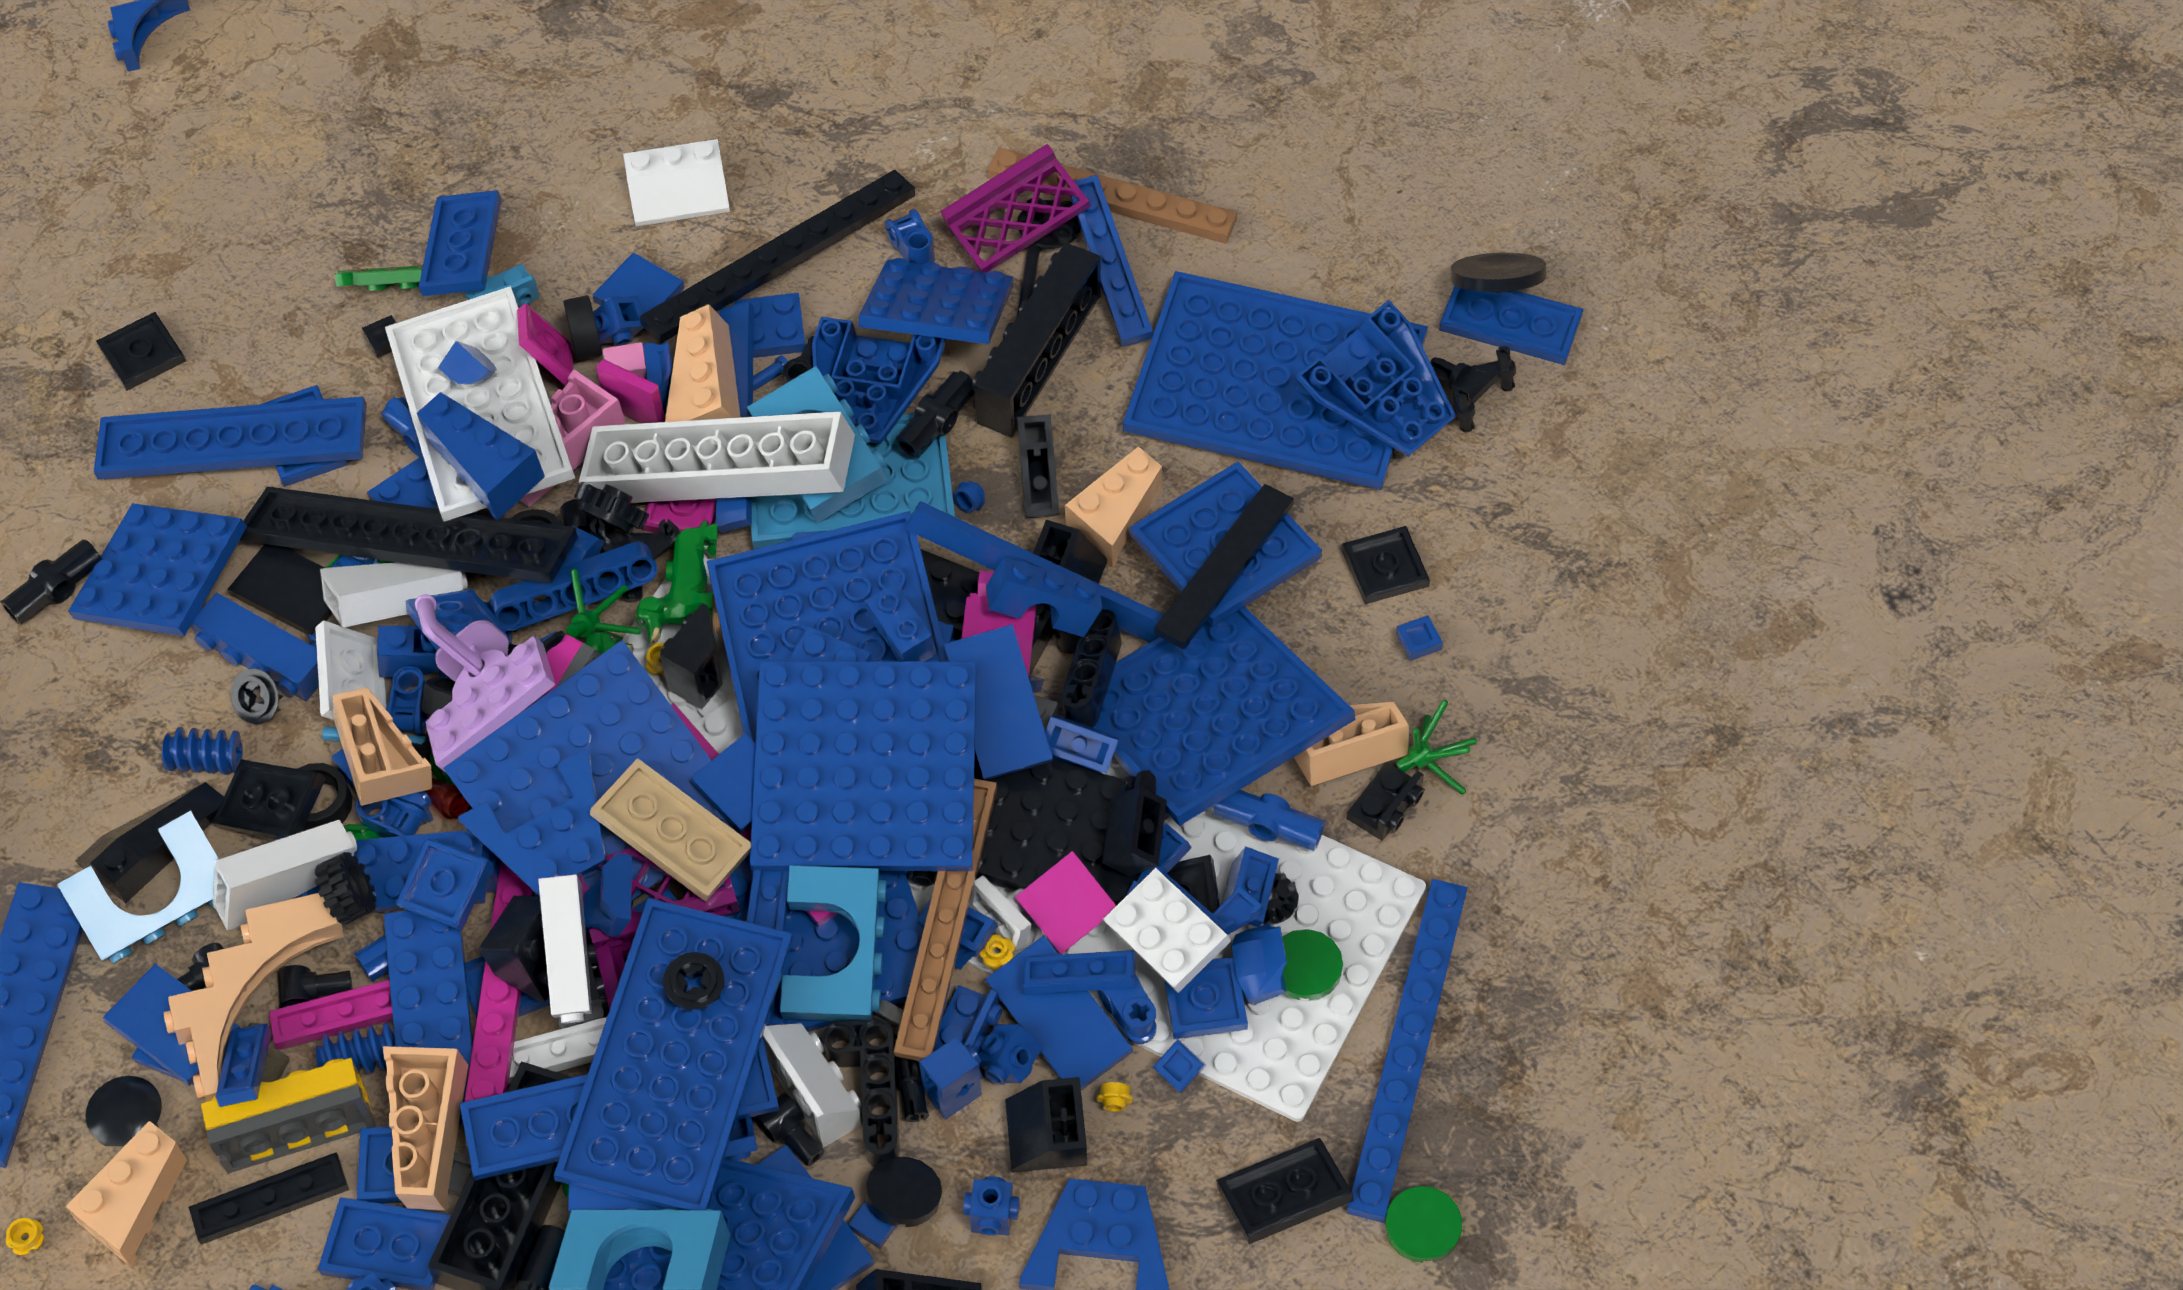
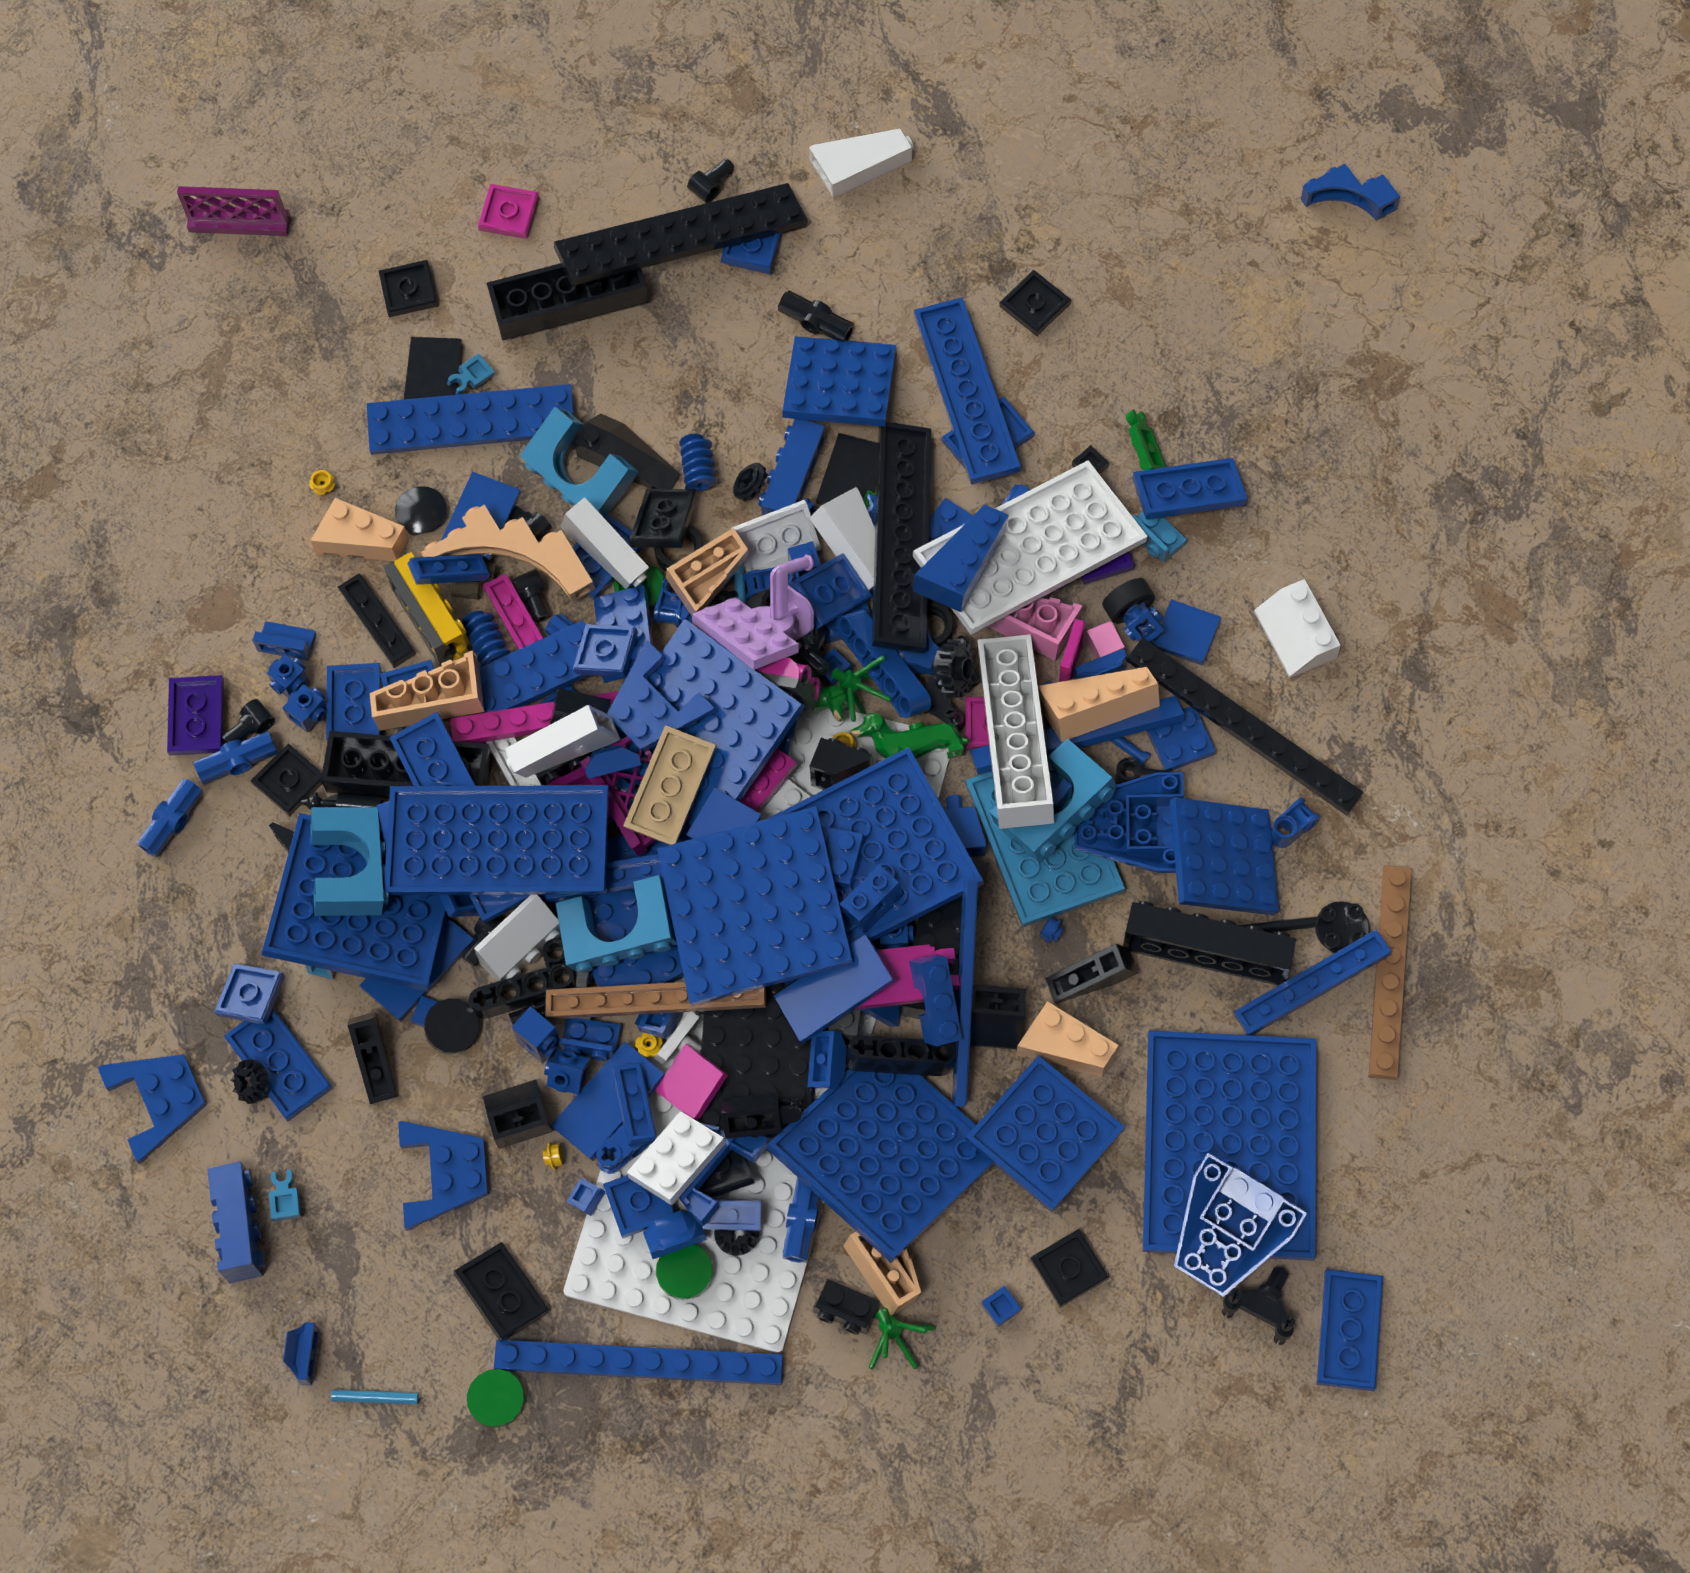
camera: 80 degrees right, 10 degrees up
(345, 888) = (586, 579): black tyre -> none
(466, 365) = (1053, 528): blue brick -> none
(544, 343) = (1099, 575): dark pink tile -> none
(692, 966) = (541, 823): black gear -> none
(935, 415) = (1110, 882): black piece -> none
(991, 1206) = (454, 1094): blue brick -> none
(1002, 193) = (1358, 883): magenta fence -> none
(1224, 566) = (1015, 1135): black tile -> none
(1498, 272) = (1382, 1306): black piece -> none

